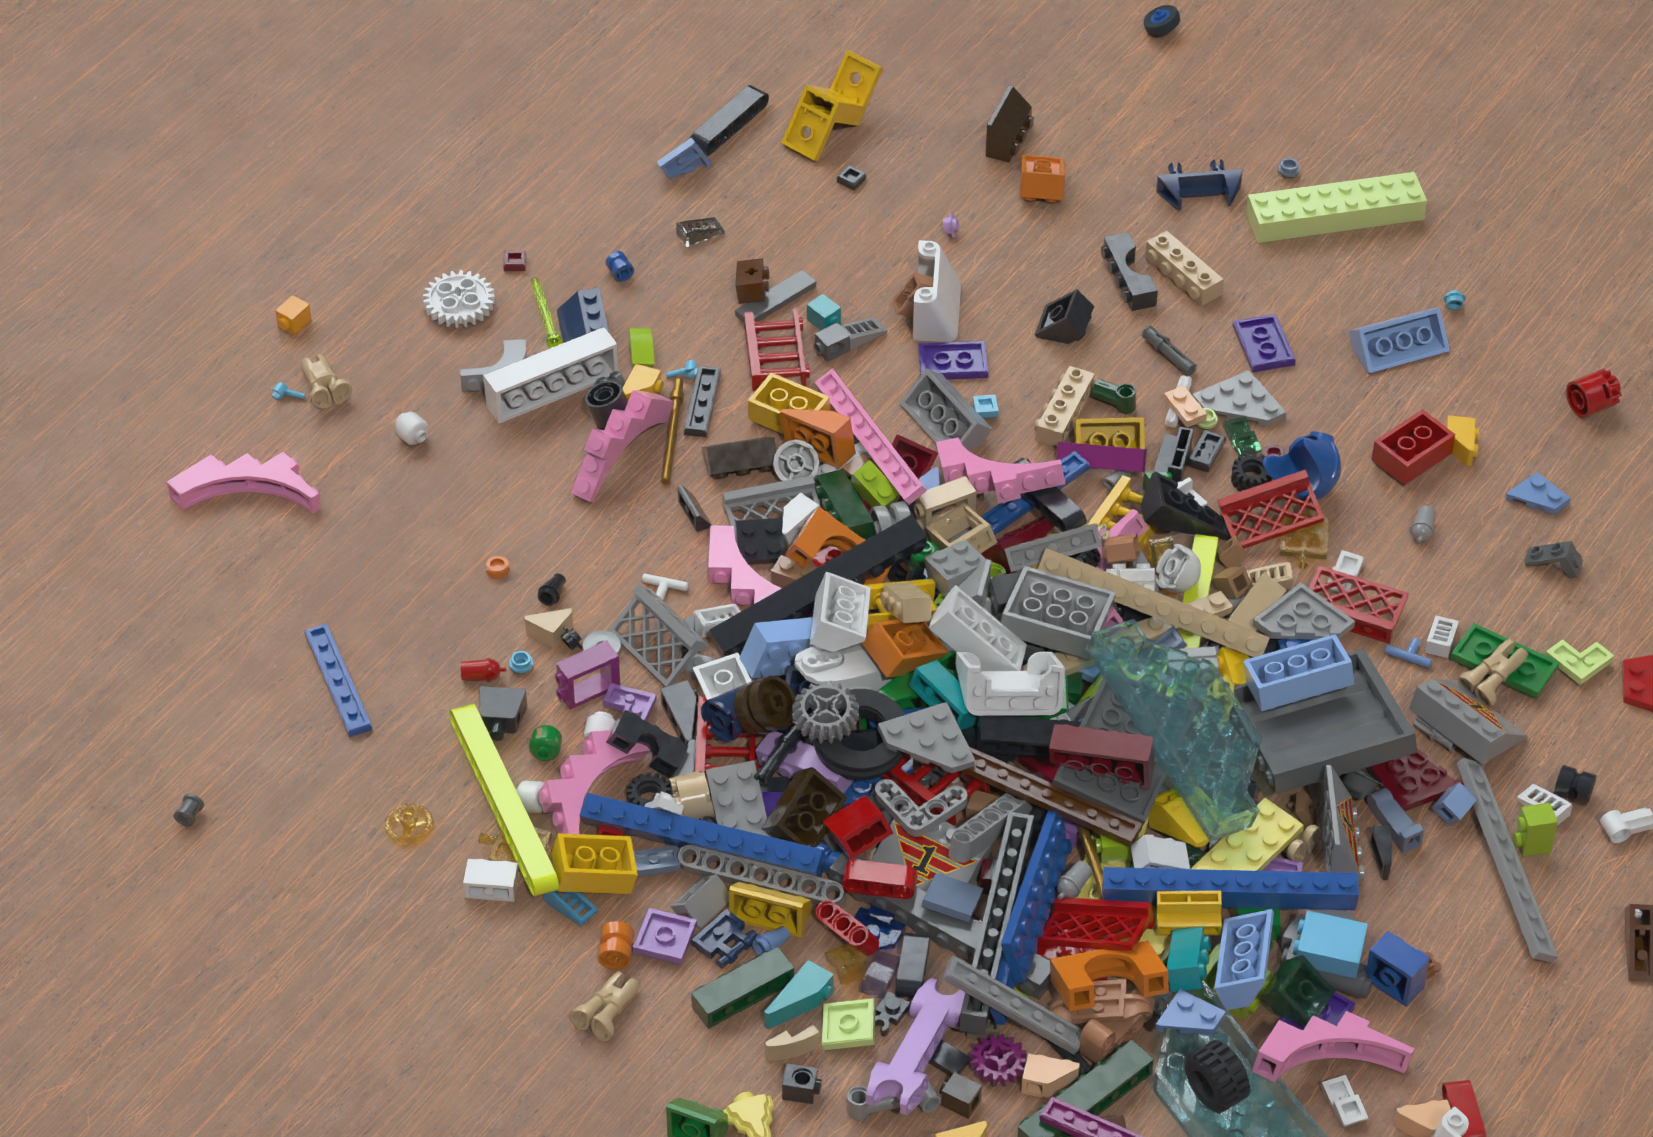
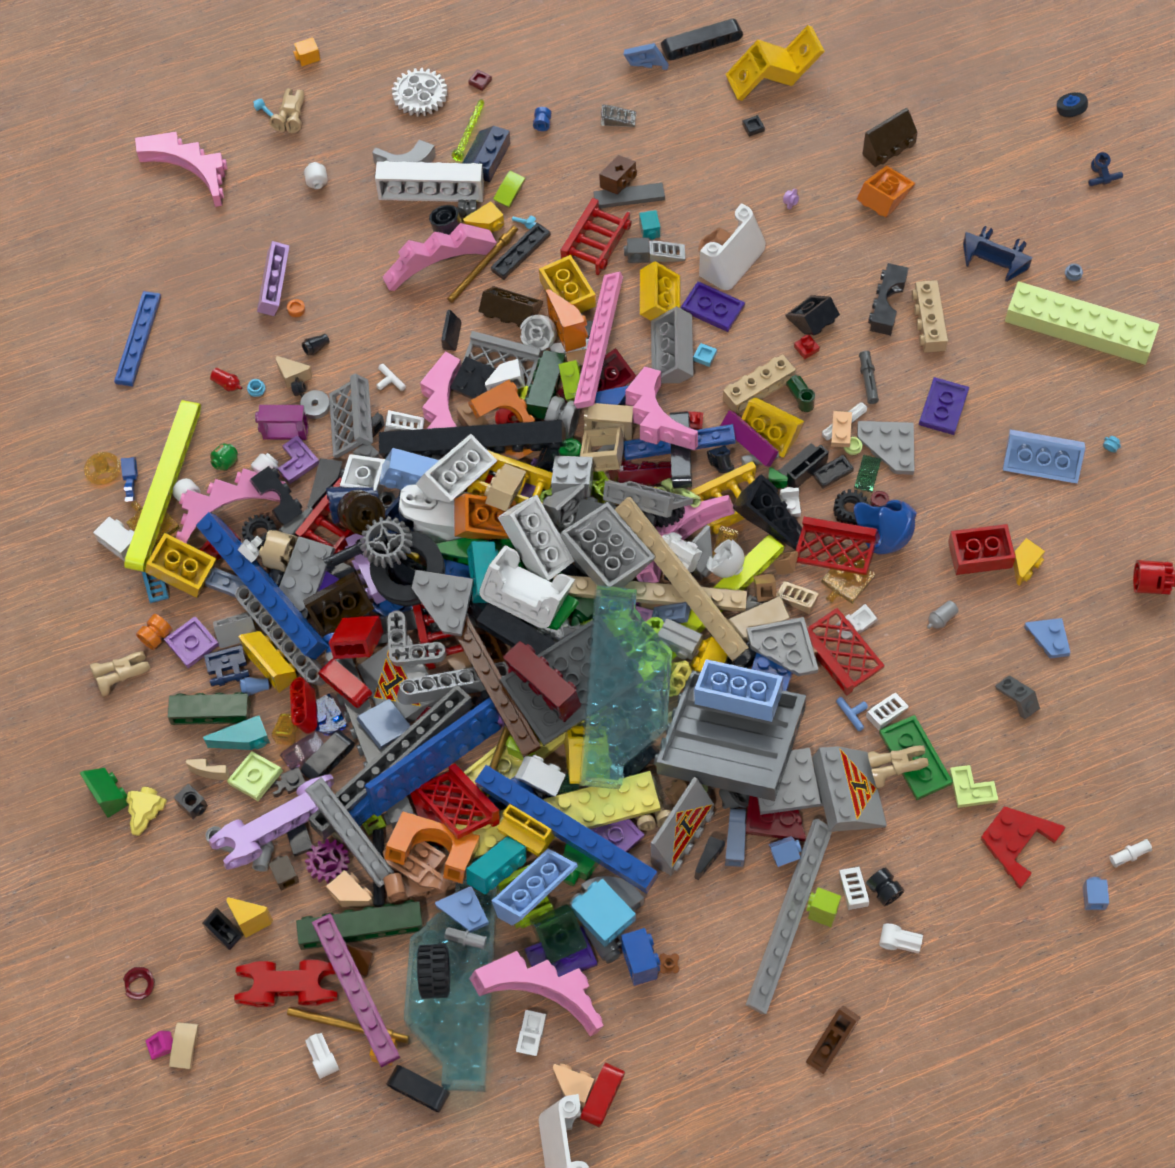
camera: 35 degrees right, 15 degrees up
(449, 811) = (129, 473): none -> piece
(452, 546) = (273, 278): none -> lavender brick
(502, 710) = (215, 417): torso -> none
(885, 369) = (658, 290): none -> yellow slope
(1074, 880) = (473, 758): light grey piece -> none
(1082, 352) = (806, 346): none -> red tile
(1087, 490) = (720, 459): none -> black piece
(1121, 549) = (688, 524): nougat brick -> none
(1226, 1036) = (465, 938): none -> light grey axle
(1240, 65) = (1102, 169): none -> dark blue piece
(1430, 747) = (797, 786): none -> light grey plate

